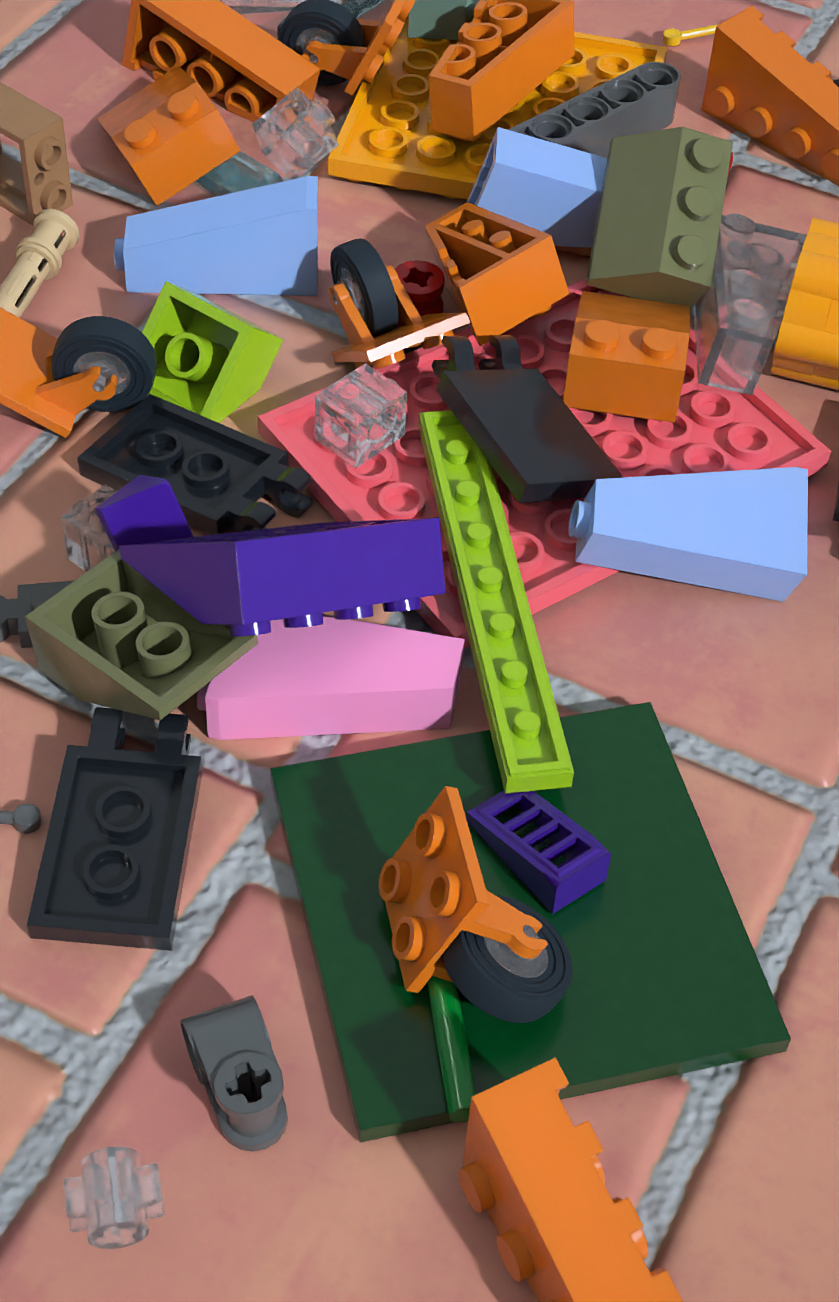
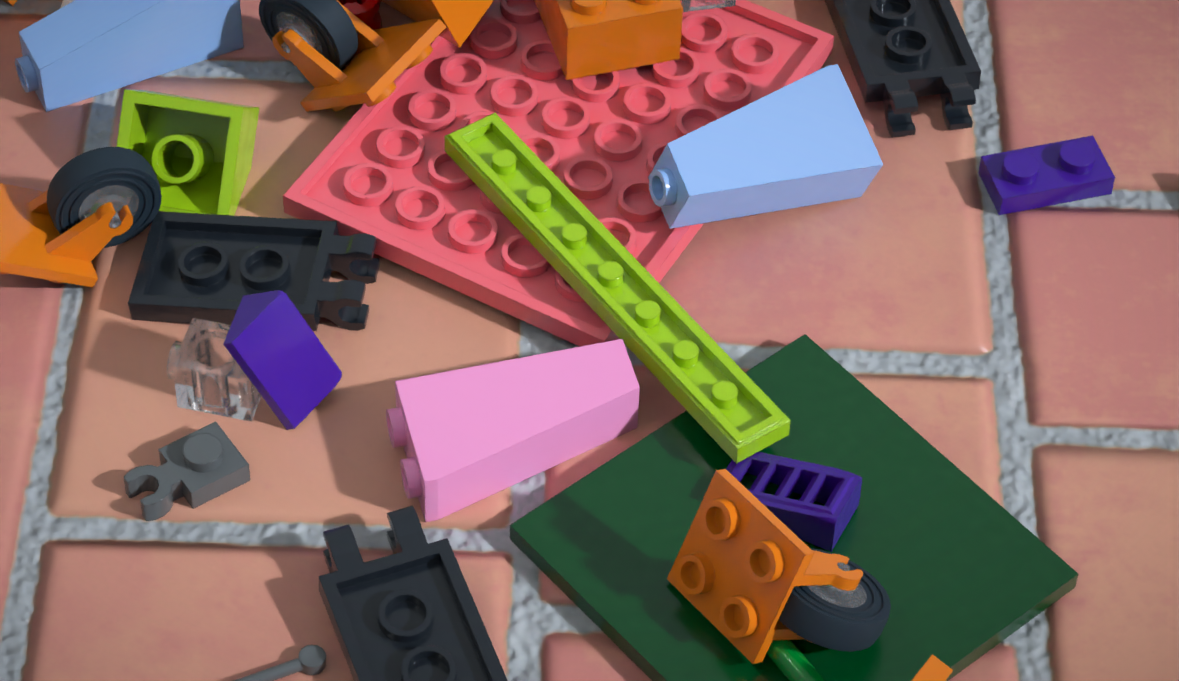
camera: 25 degrees left, 0 degrees up
(128, 643) = (328, 455): olive slope -> none
(296, 572) = (439, 331): dark purple slope -> none
(360, 415) = (394, 159): clear brick -> none
(520, 423) = (548, 111): black tile -> none

